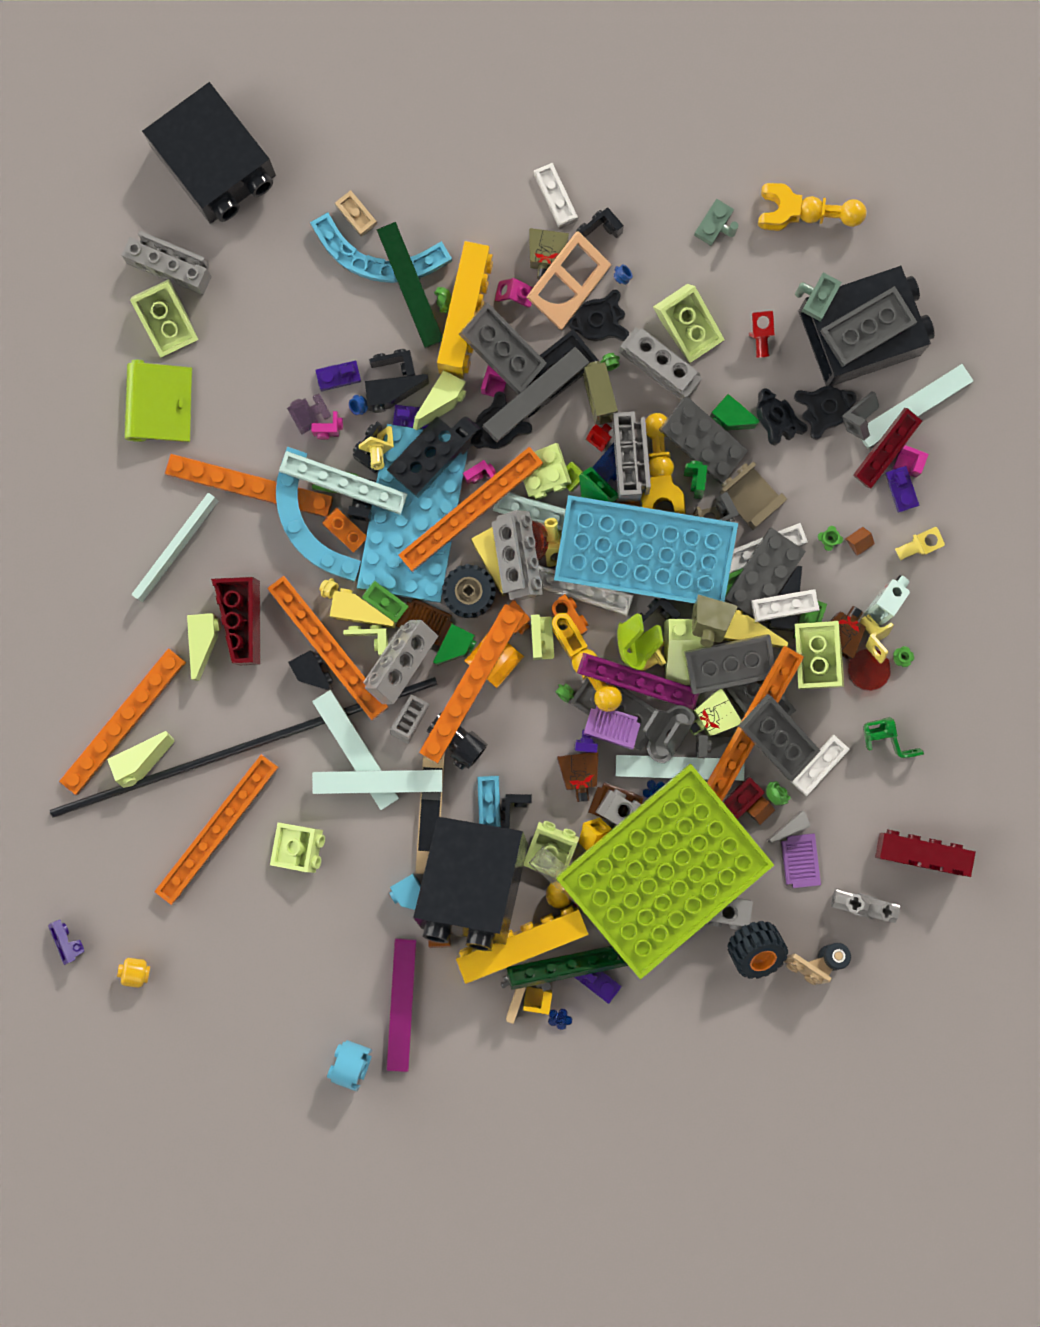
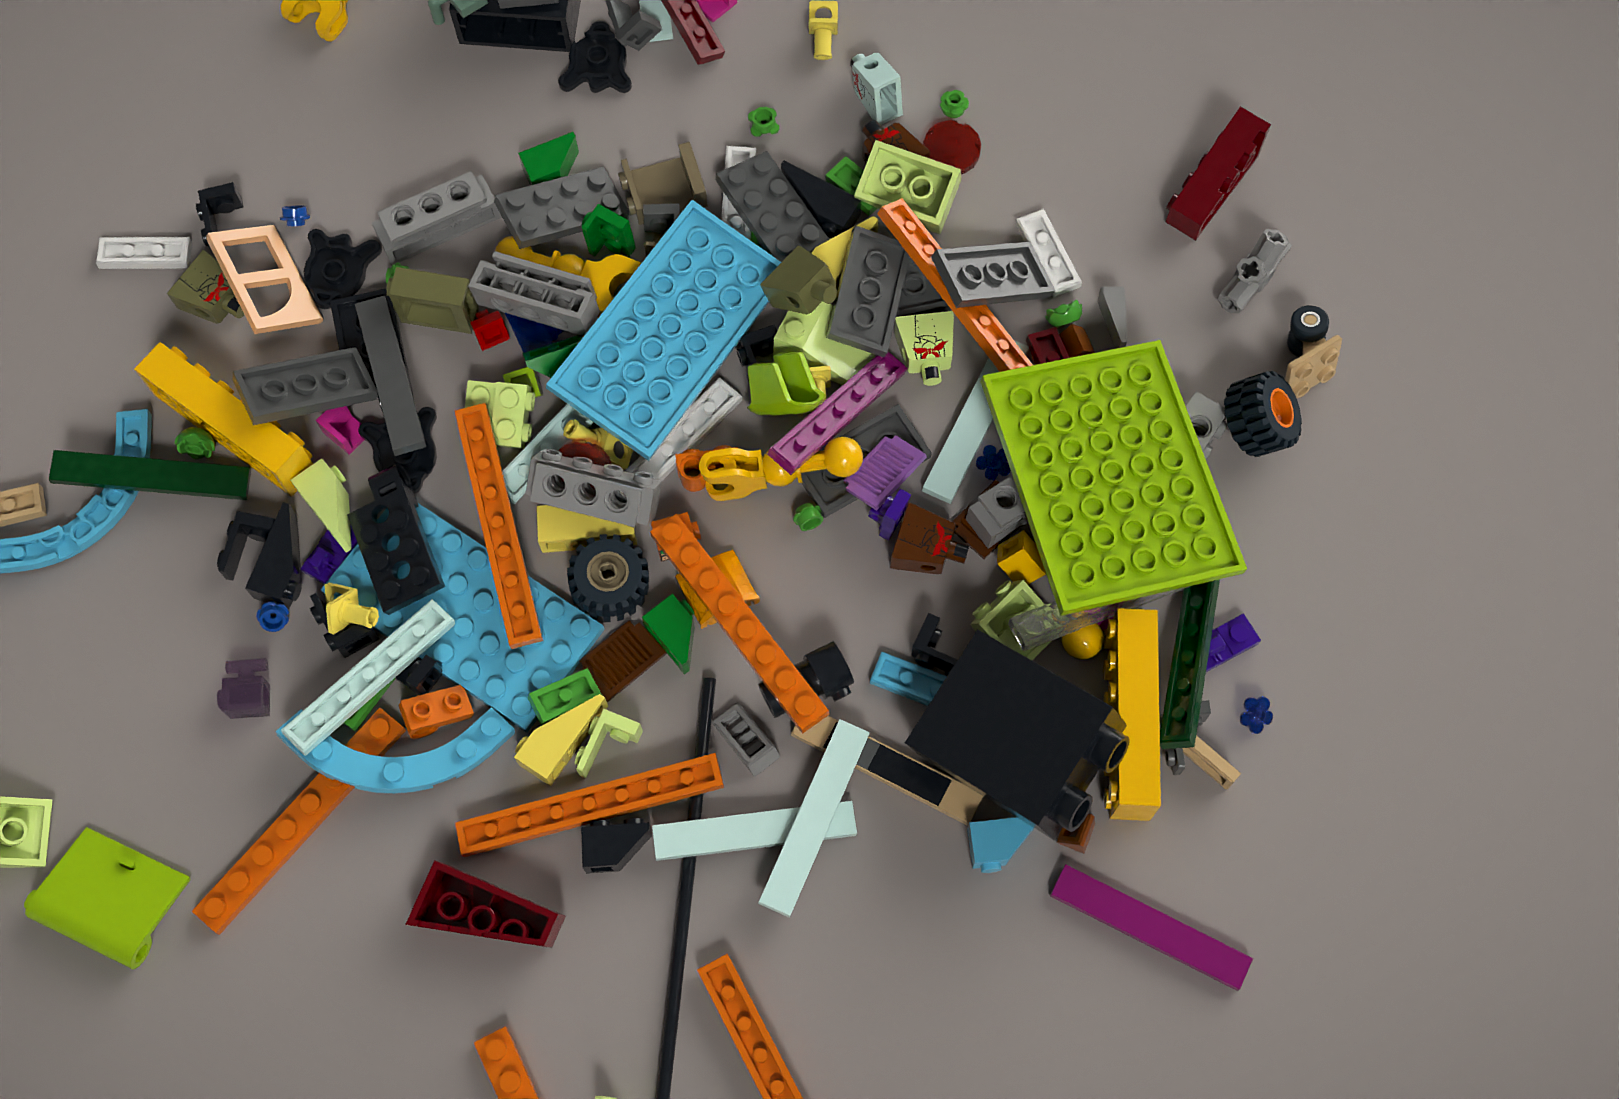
camera: 65 degrees left, 15 degrees down
(175, 547) = (331, 965): light aqua tile -> none
(202, 637) = (481, 981): yellowish green slope -> none
(297, 848) = (858, 976): yellowish green plate -> none
(326, 430) = (283, 673): dark pink bracket -> none
(328, 587) = (506, 769): light yellow plate -> none
(338, 375) = (217, 628): dark purple hinge -> none
(350, 1065) = (1214, 1034): medium azure brick -> none
(399, 661) = (660, 705): light grey brick -> none
(476, 473) = (452, 496): dark pink bracket -> none
(515, 291) = (238, 348): dark pink bracket -> none
(537, 1000) = (1221, 729): yellow panel -> none
(542, 637) = (718, 514): yellowish green bracket -> none
(678, 720) = (908, 392): dark grey piece -> none
(689, 322) = (399, 163): yellowish green slope -> none
(711, 746) = (966, 366): dark grey bracket -> none
(715, 222) = (294, 86): sand green plate -> none
(762, 335) = (464, 84): red bracket -> none
(778, 417) = (580, 113): black tile -> none
(785, 605) = (824, 198): white tile -> none
(801, 861) = (1172, 325): medium lavender window -> none
(860, 540) = (784, 90): dark orange slope -> none
(876, 634) = (911, 117): light yellow bracket -> none
(887, 730) = (1037, 153): green piece -> none
(902, 489) = (744, 20): dark purple hinge -> none

